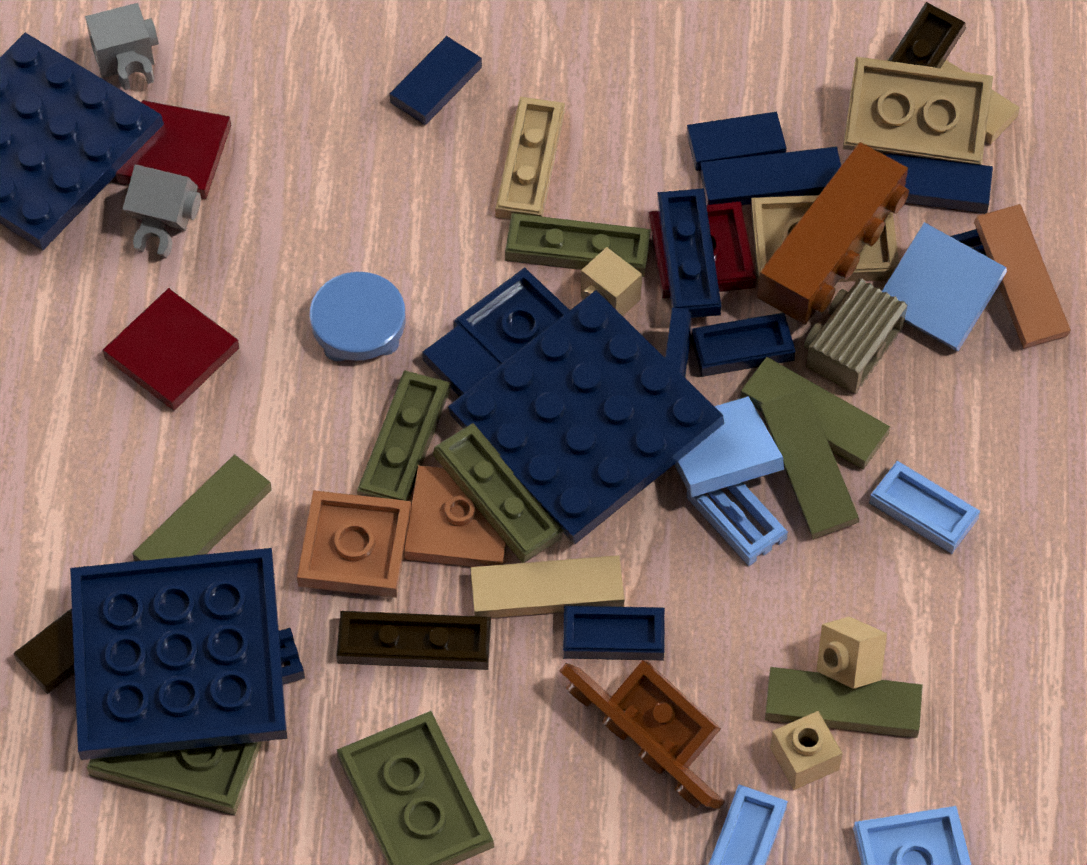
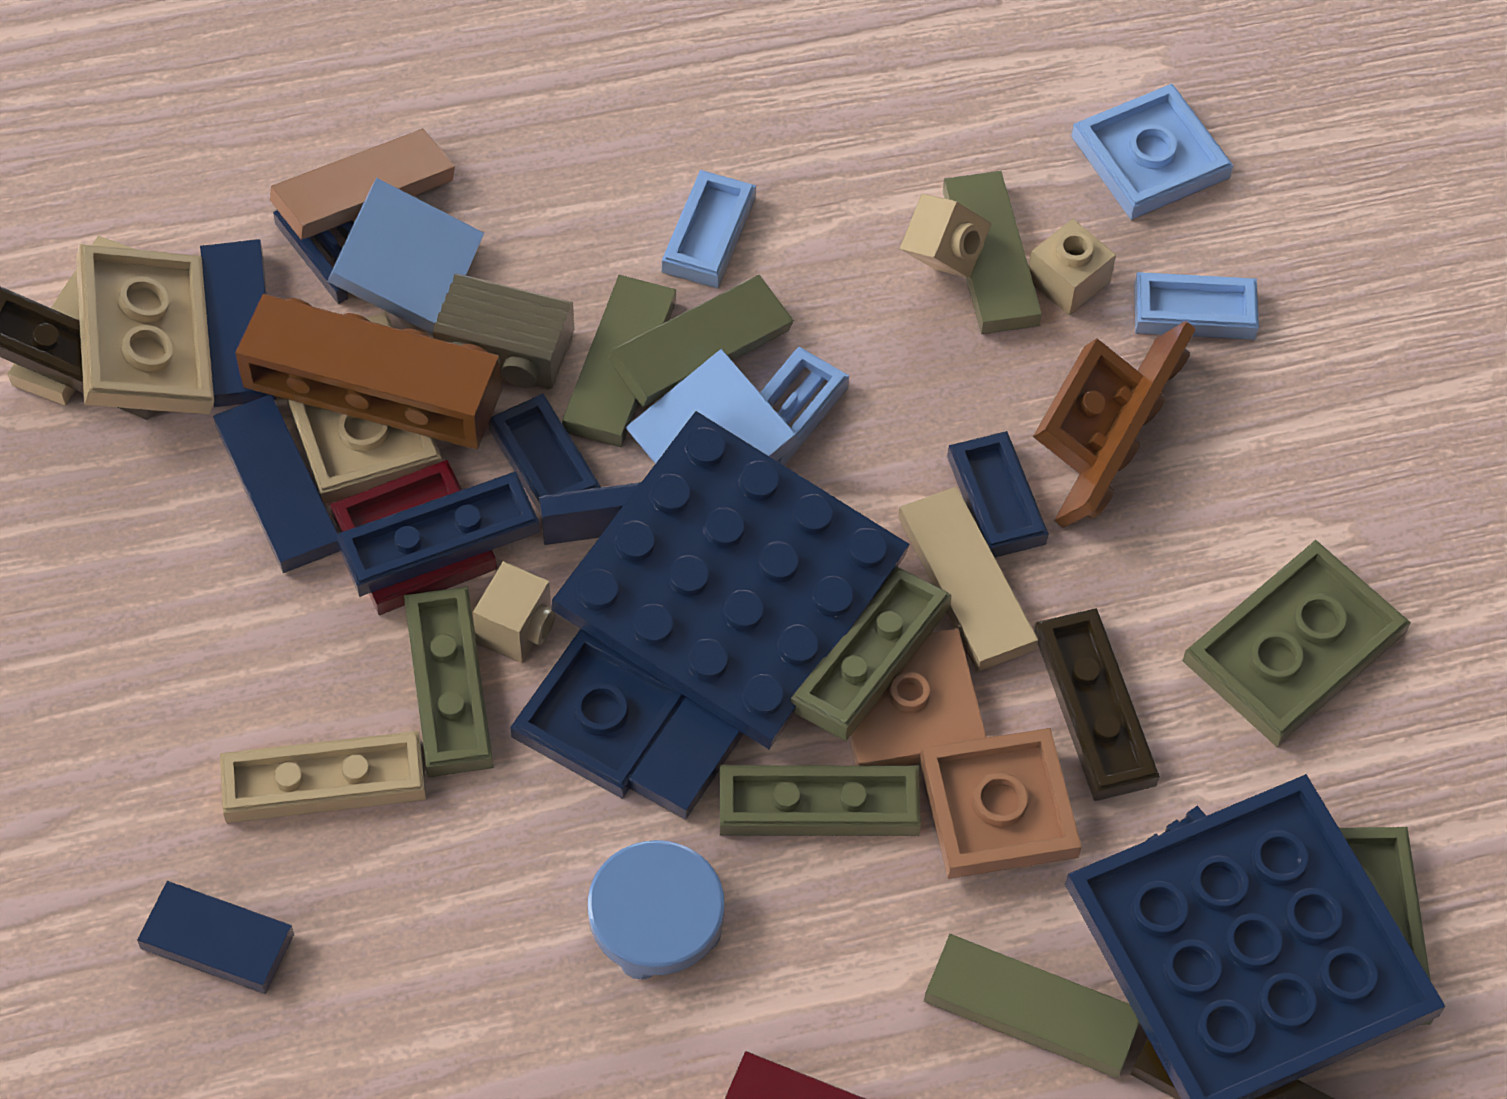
camera: 110 degrees left, 0 degrees up
(735, 138) = (227, 537): dark blue tile -> none

